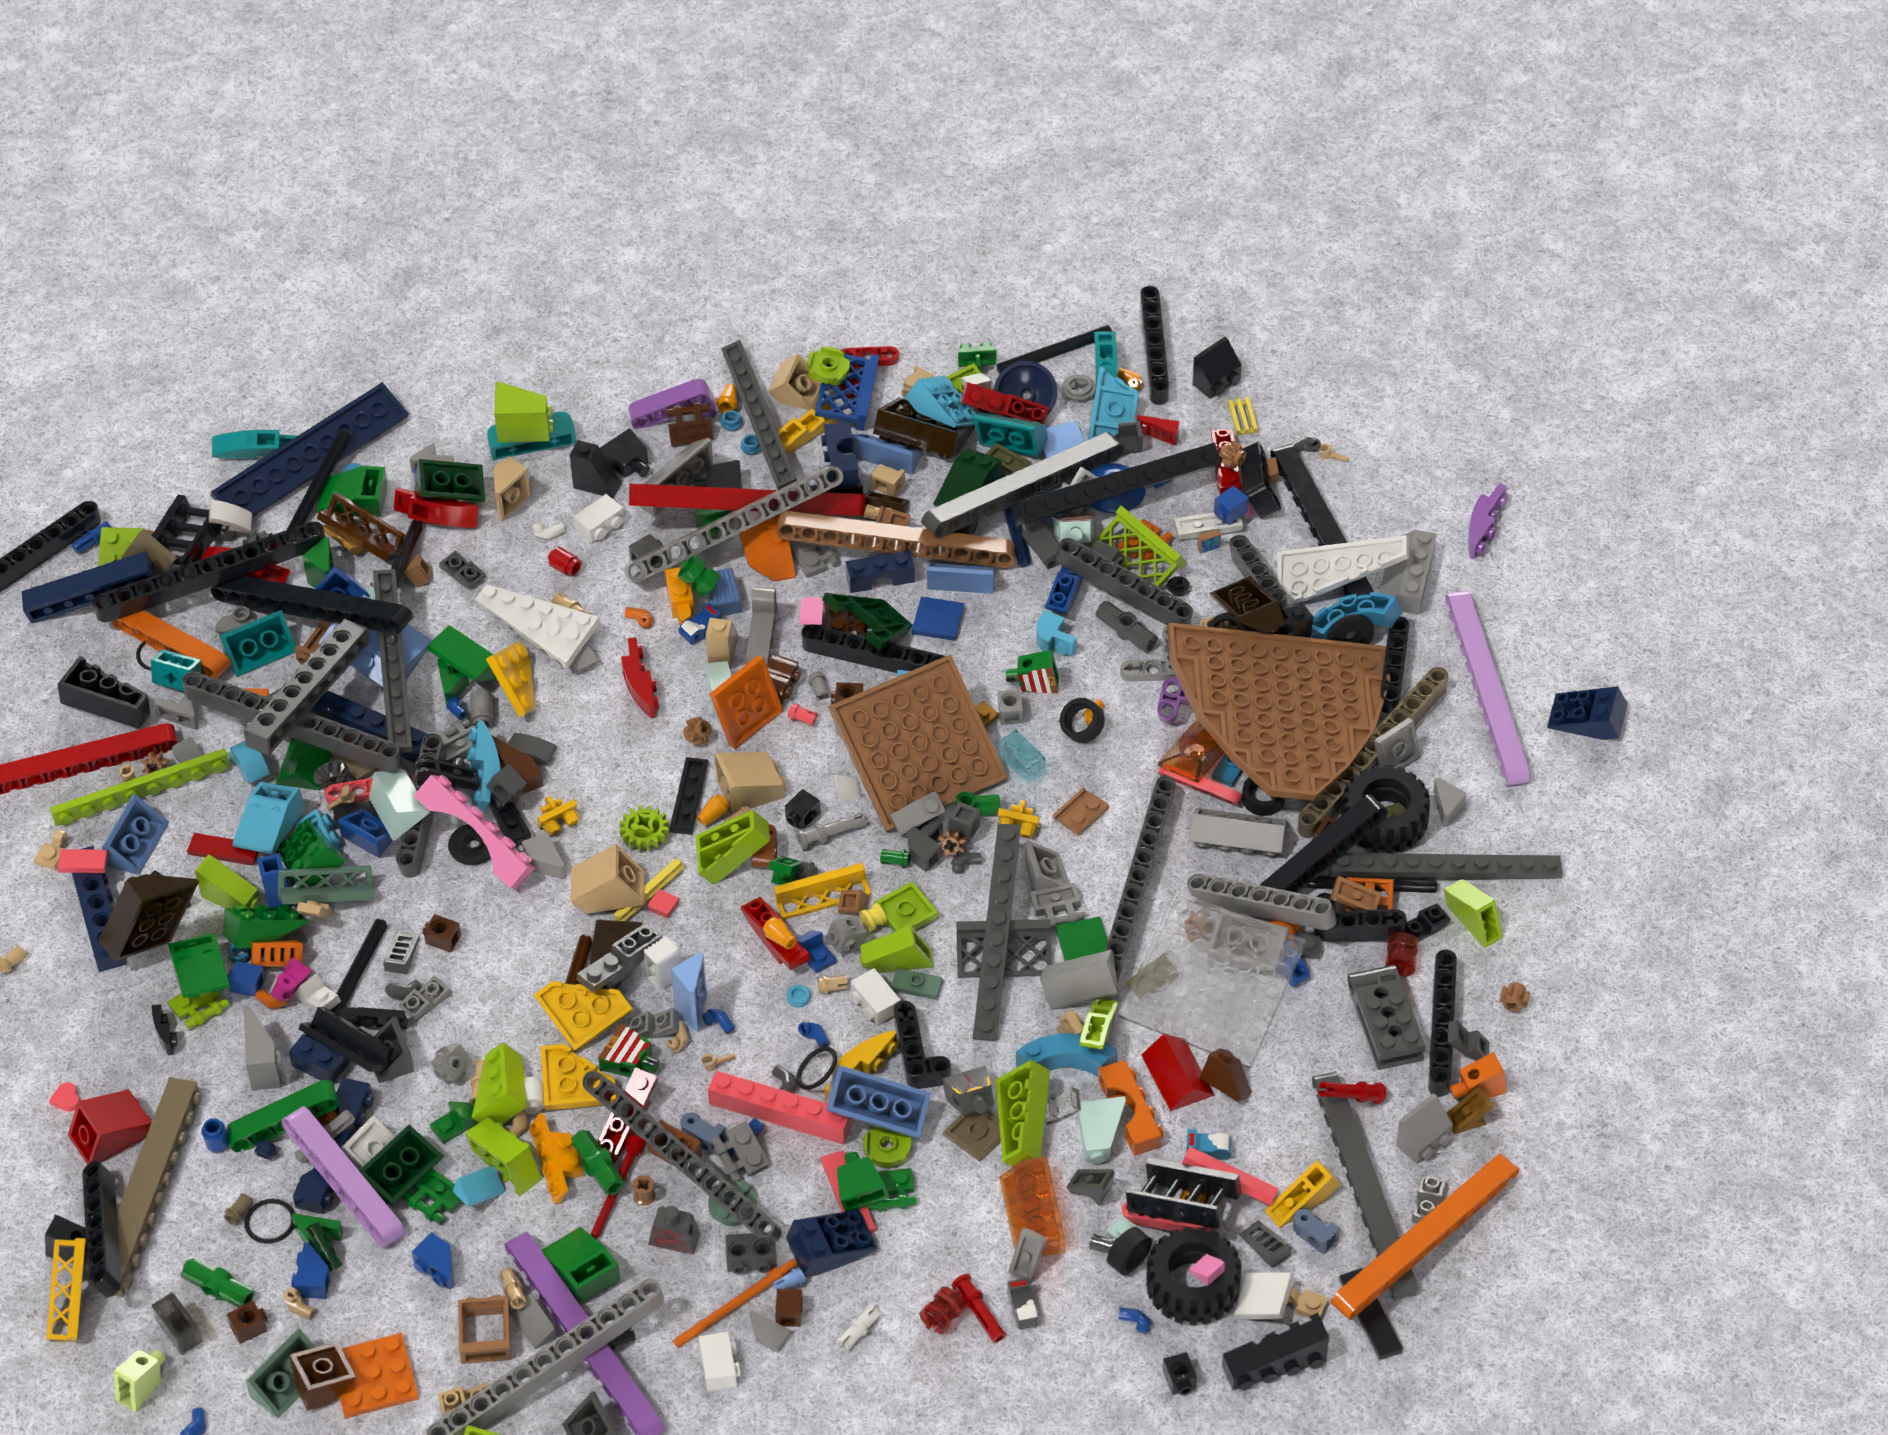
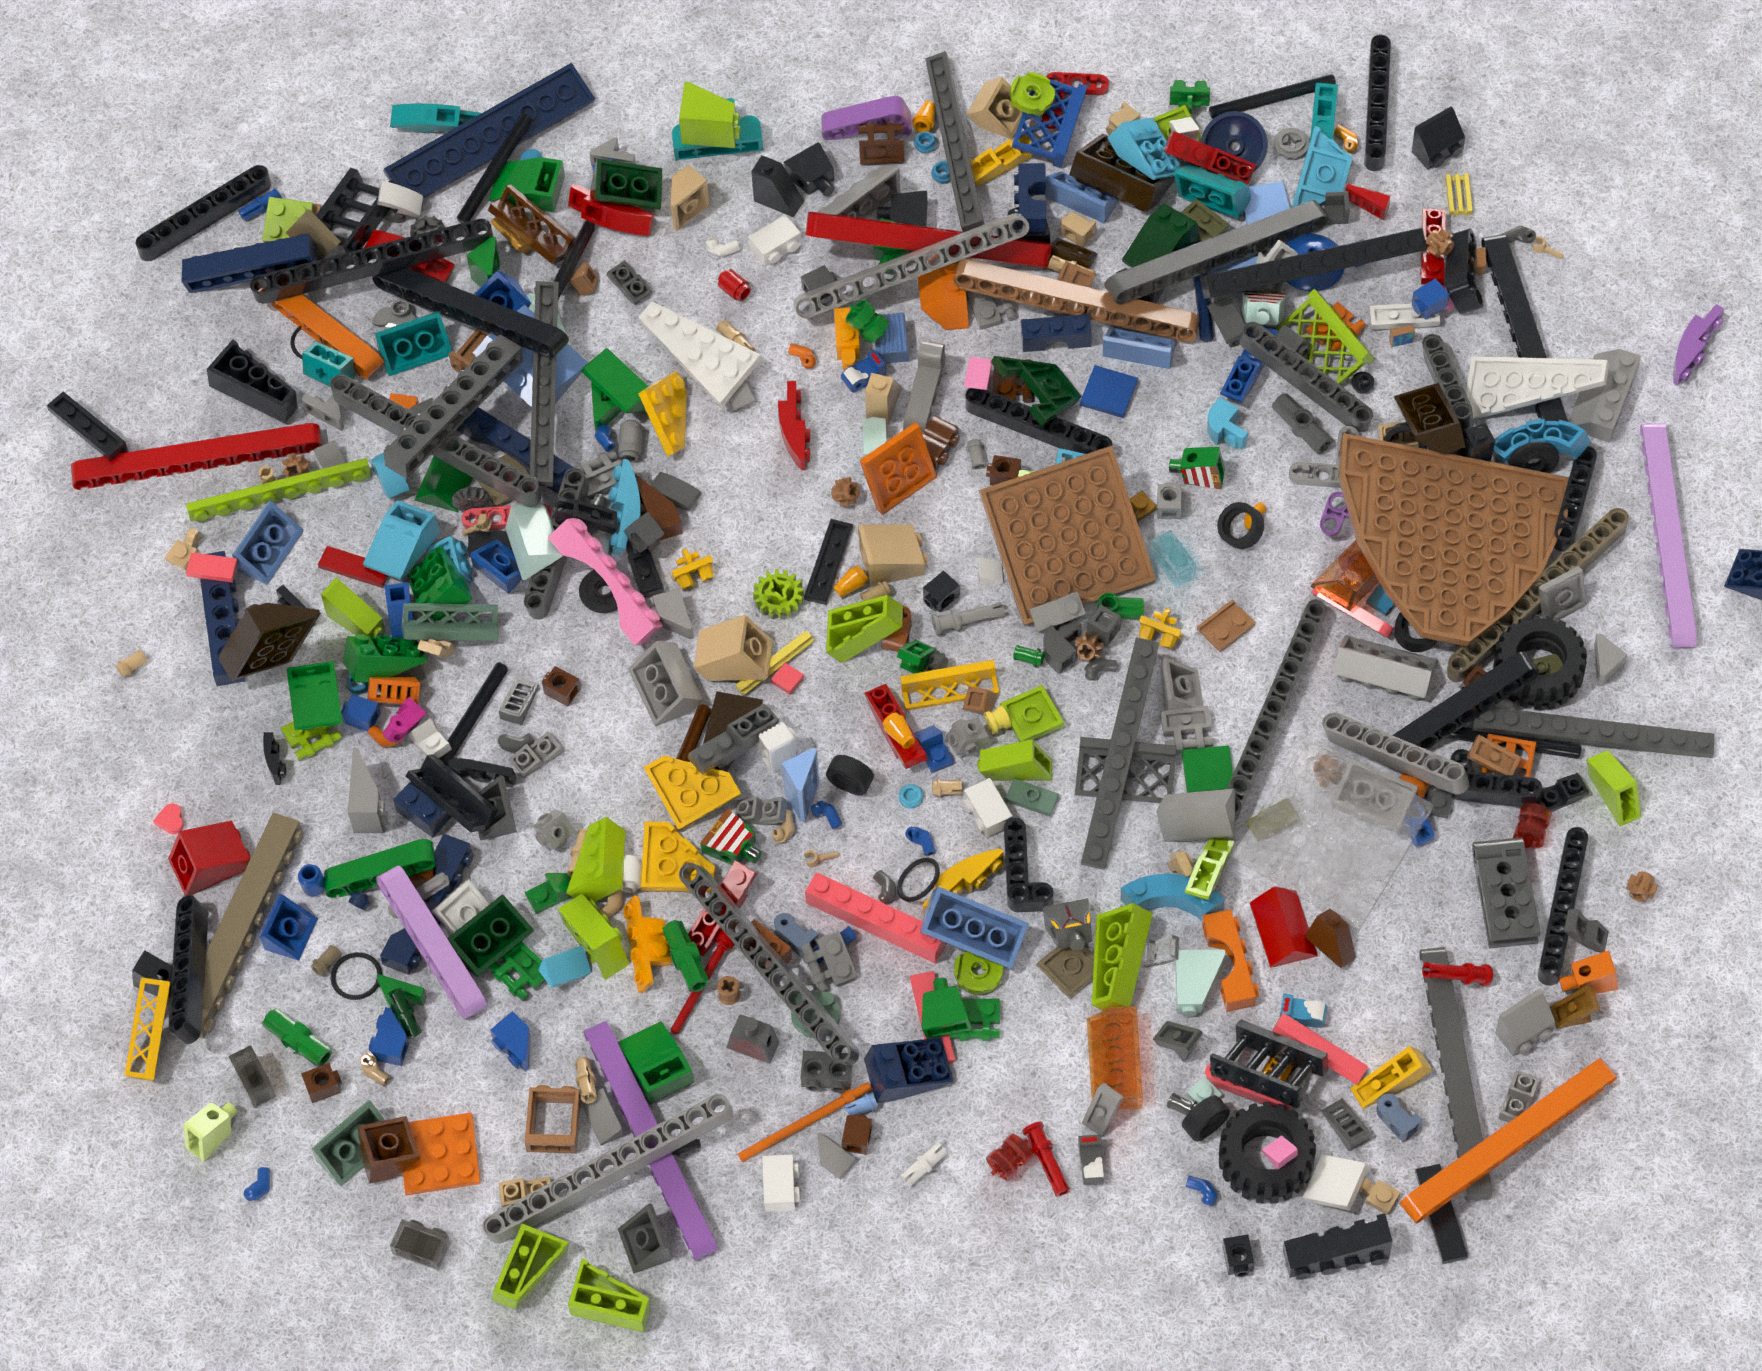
camera: 10 degrees right, 10 degrees up
(196, 1183) = (287, 928): none -> blue slope
(544, 919) = (665, 682): none -> light grey slope
(738, 971) = (849, 774): none -> black tyre
(802, 714) = (954, 484): coral pin -> none

